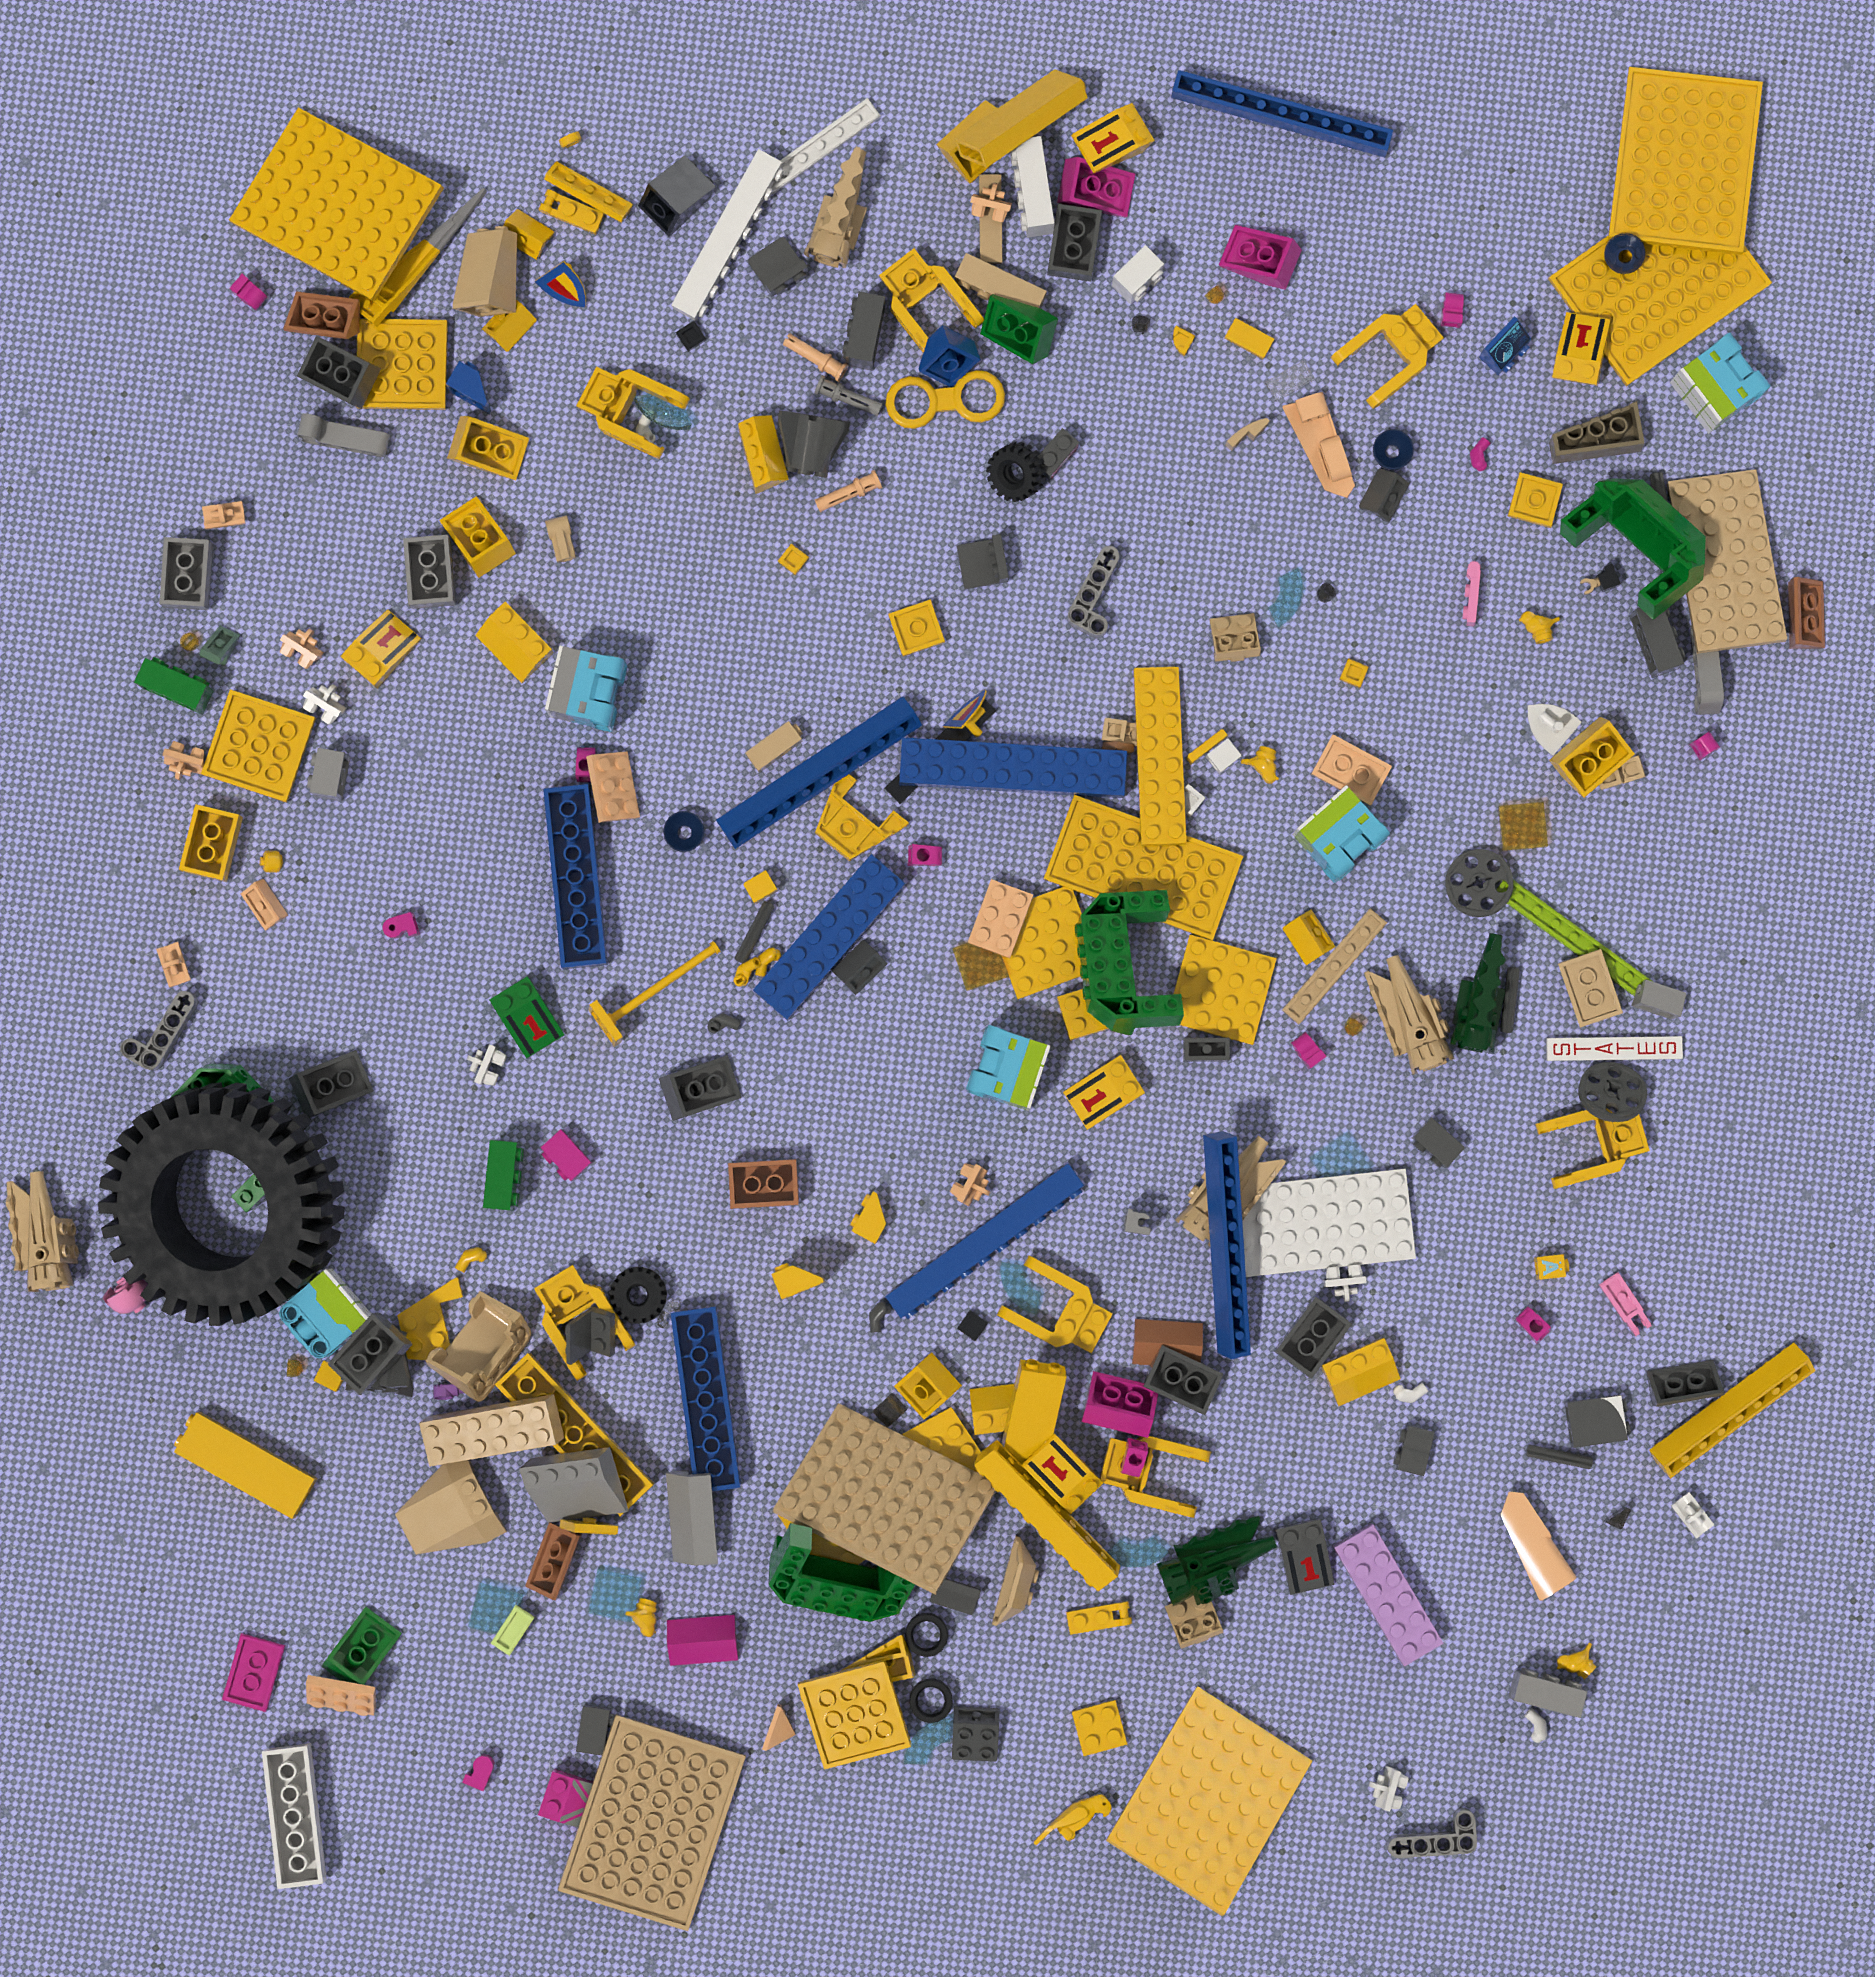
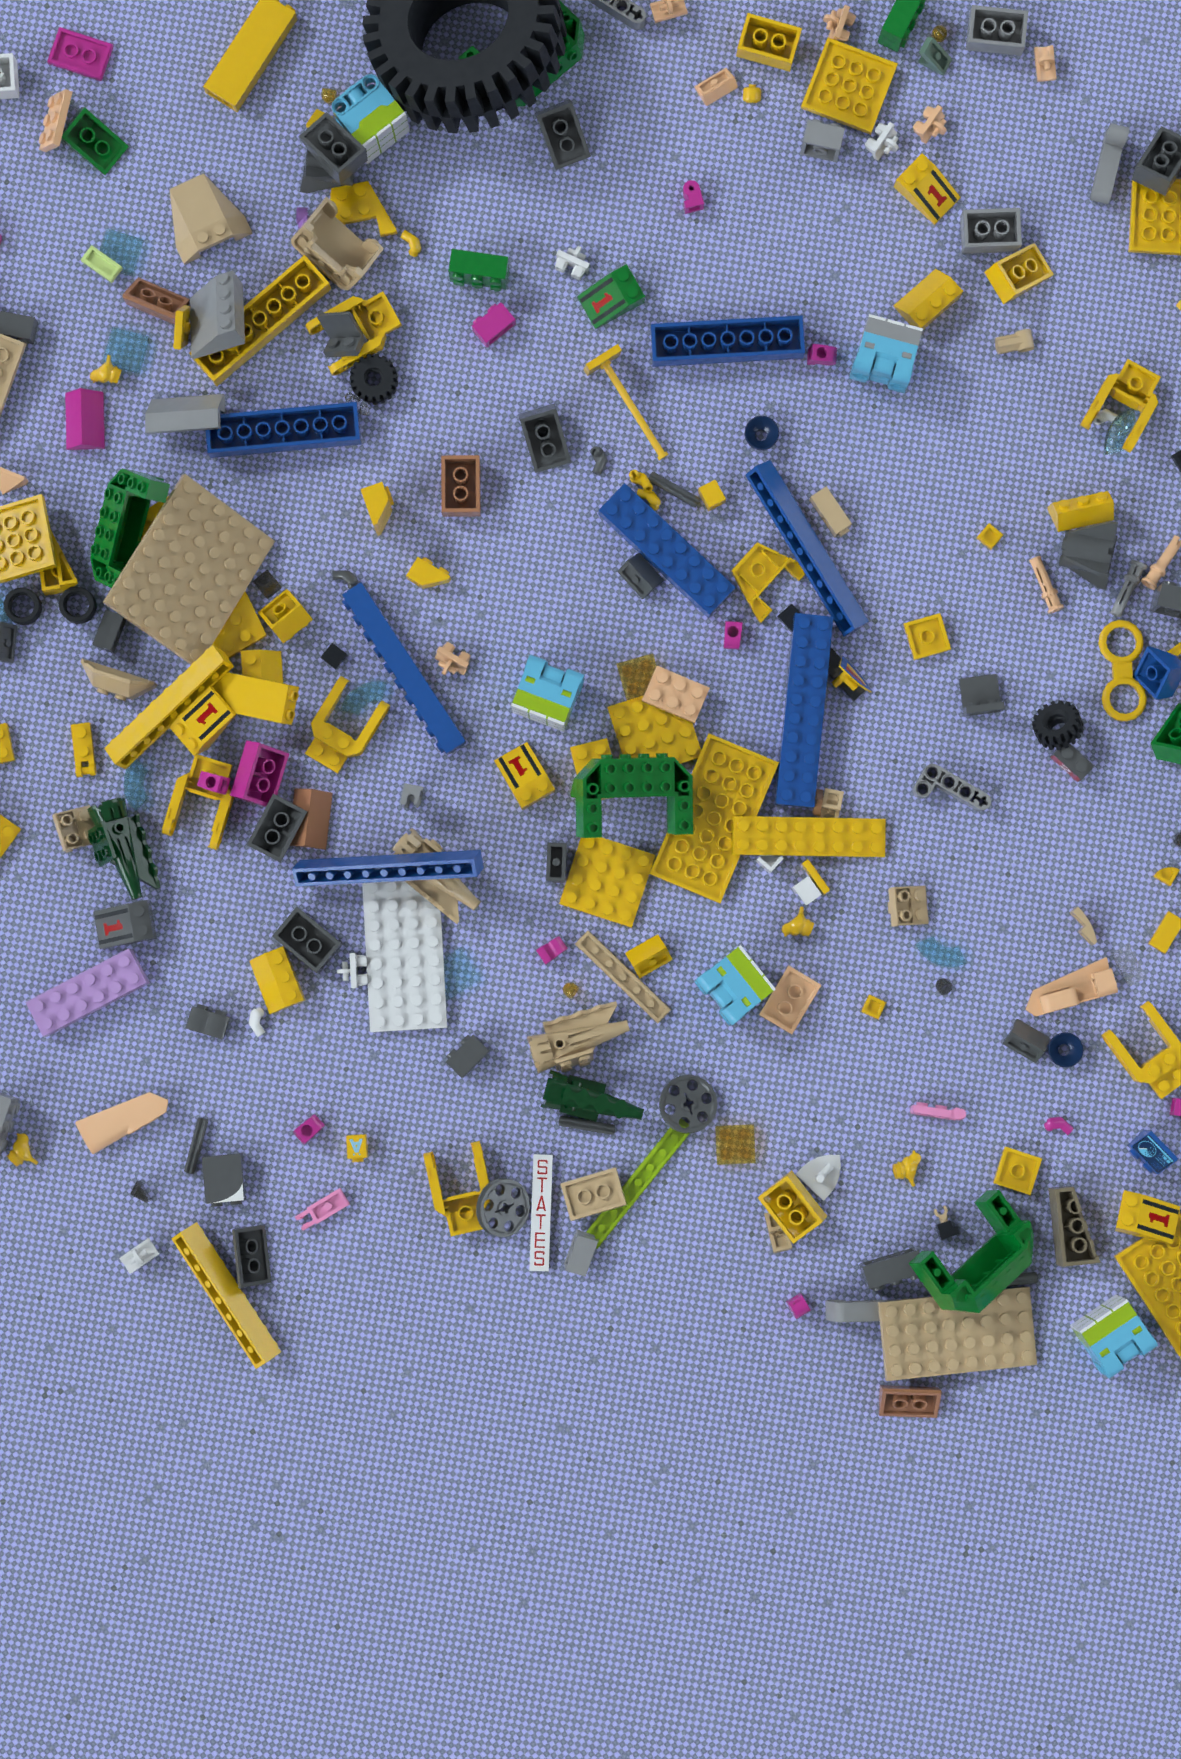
camera: 90 degrees right, 0 degrees up
(469, 386) = (1149, 269): blue slope -> none
(488, 447) = (1094, 285): yellow slope -> none
(491, 1430) = (266, 250): tan brick -> none
(613, 786) = (802, 375): light nougat plate -> none

